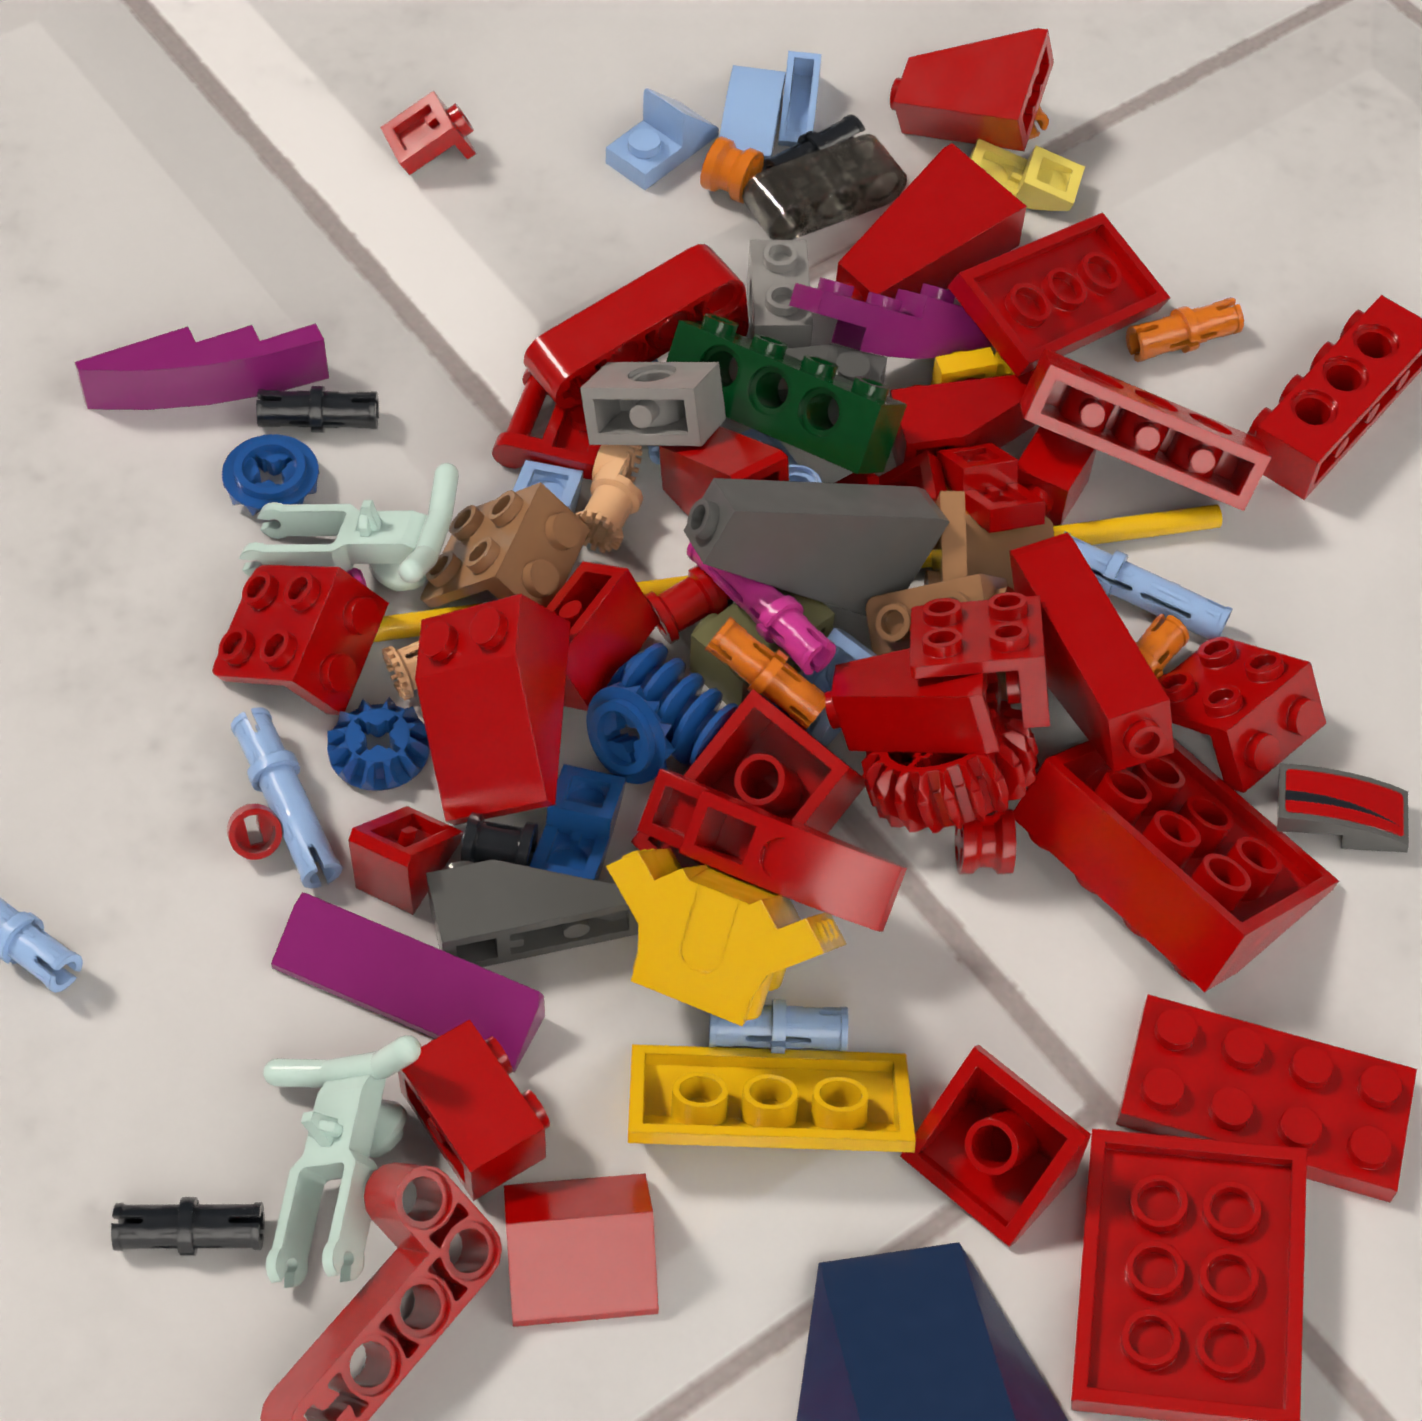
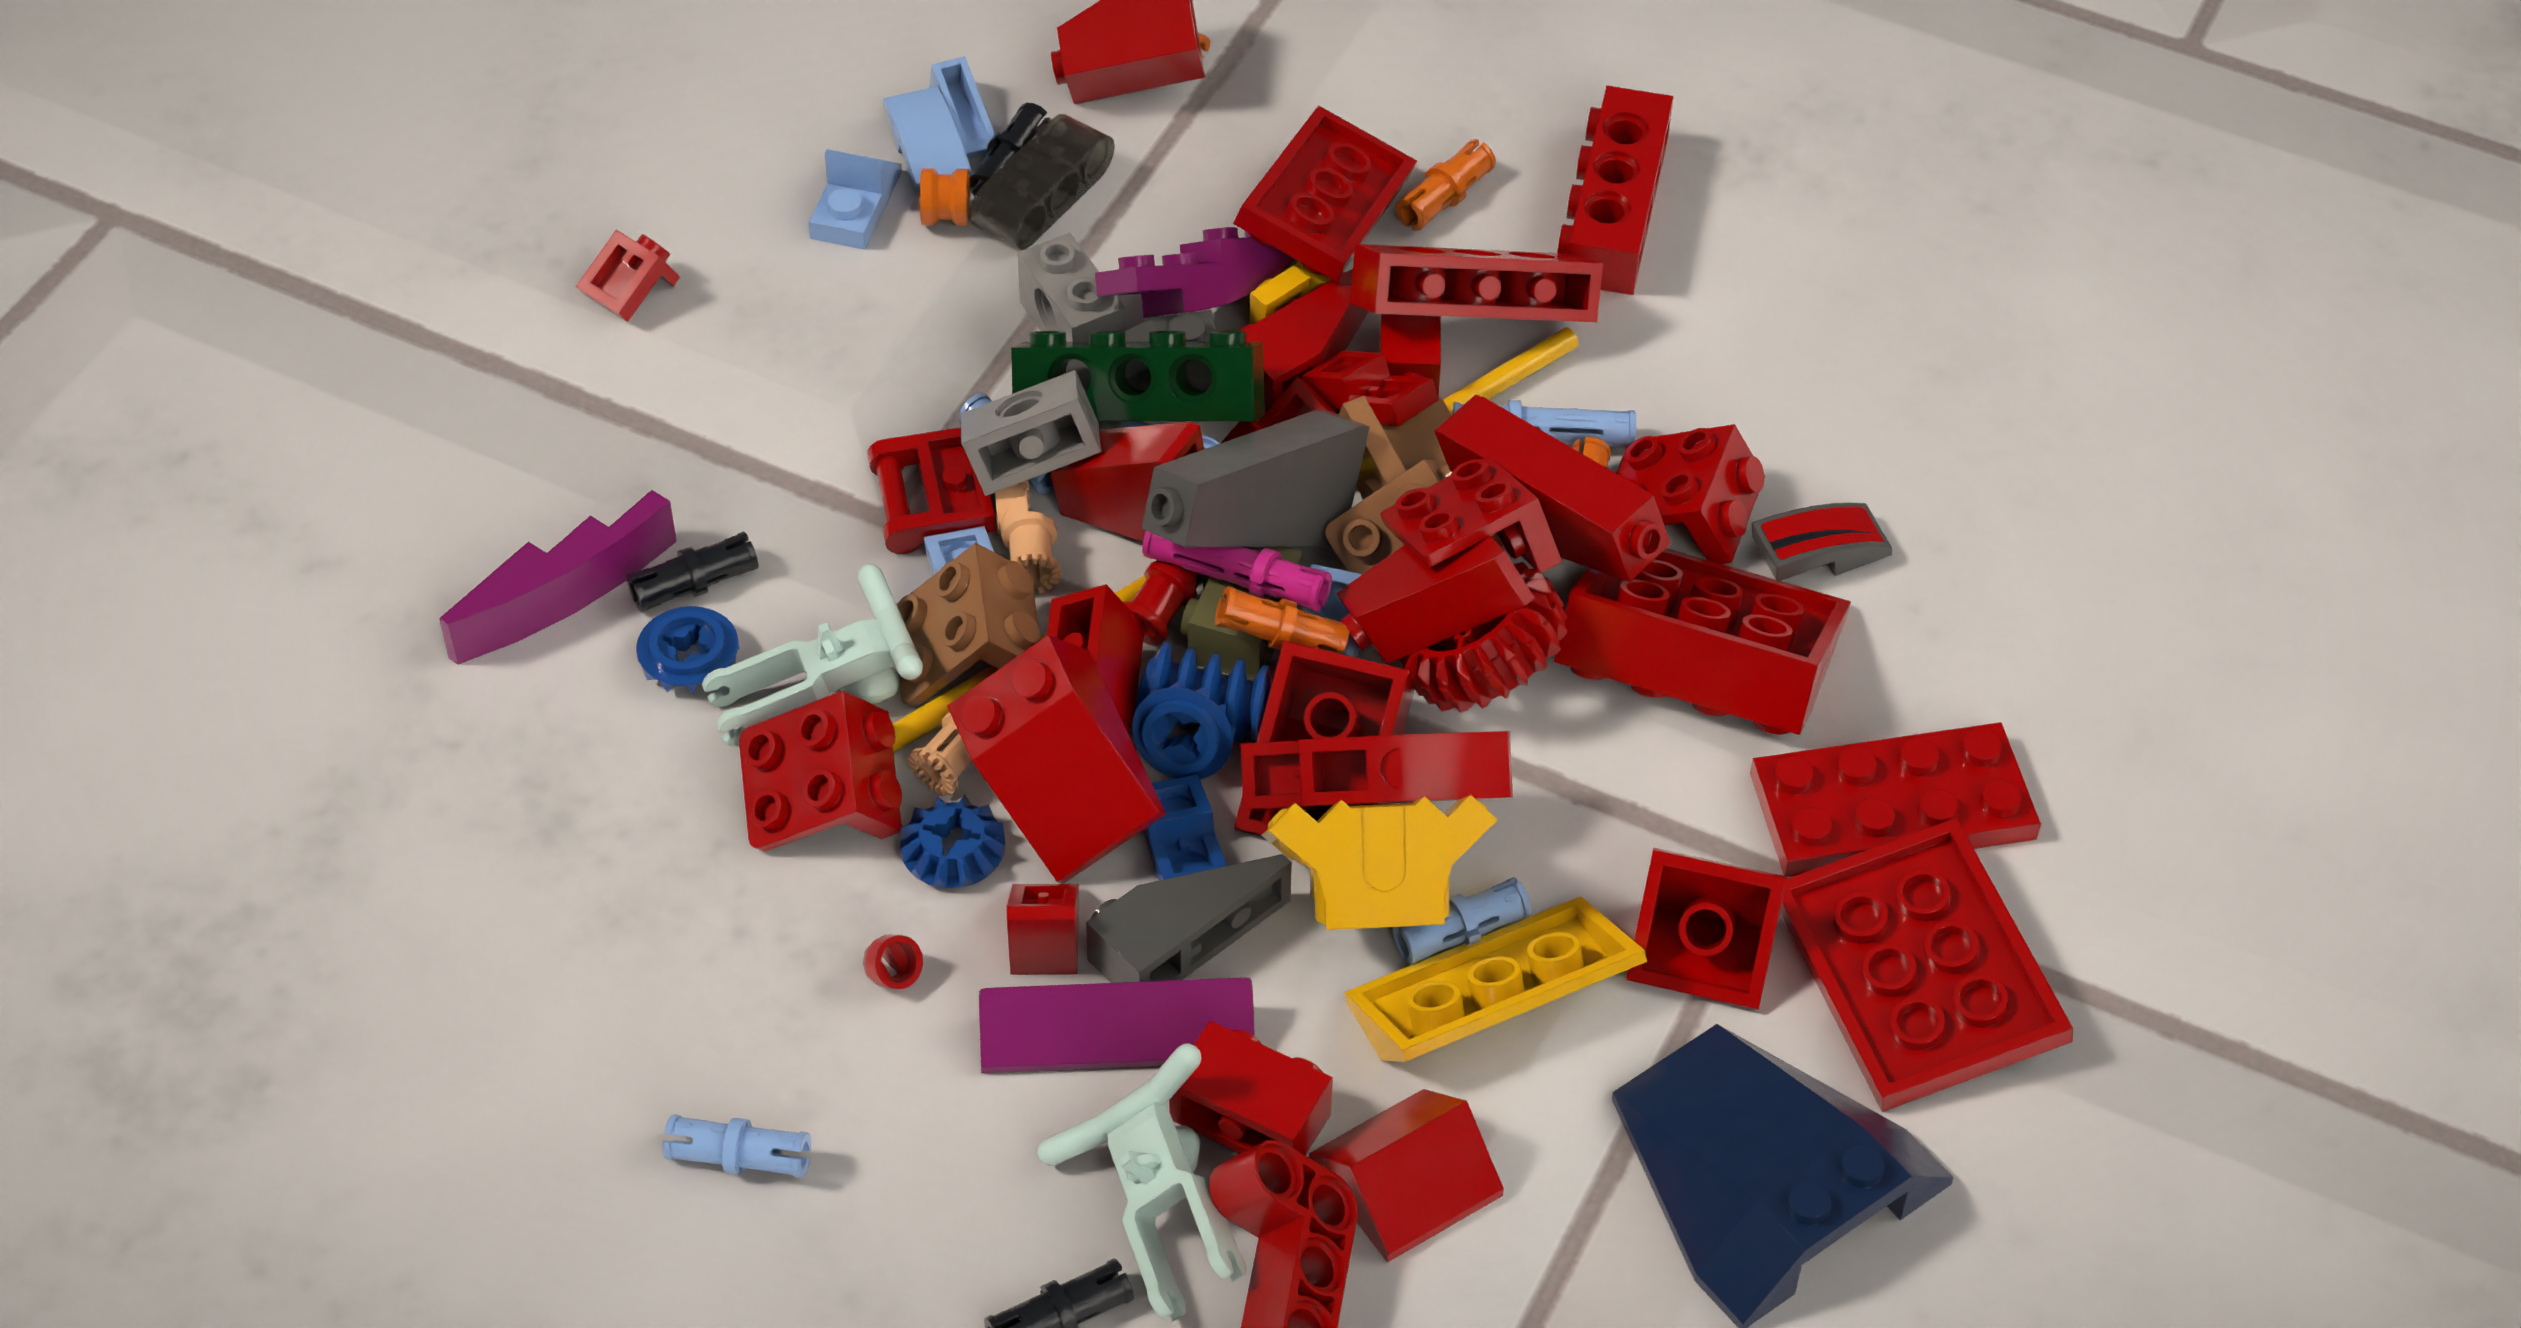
camera: 25 degrees left, 5 degrees down
(275, 775) = (879, 907): light blue pin -> none
(498, 841) = (1120, 874): black bush -> none
(636, 322) = (961, 371): red beam -> none
(934, 230) = (1174, 178): red slope -> none
(987, 844) = (1547, 695): red wheel -> none
(1039, 182) = (1227, 104): light yellow slope -> none

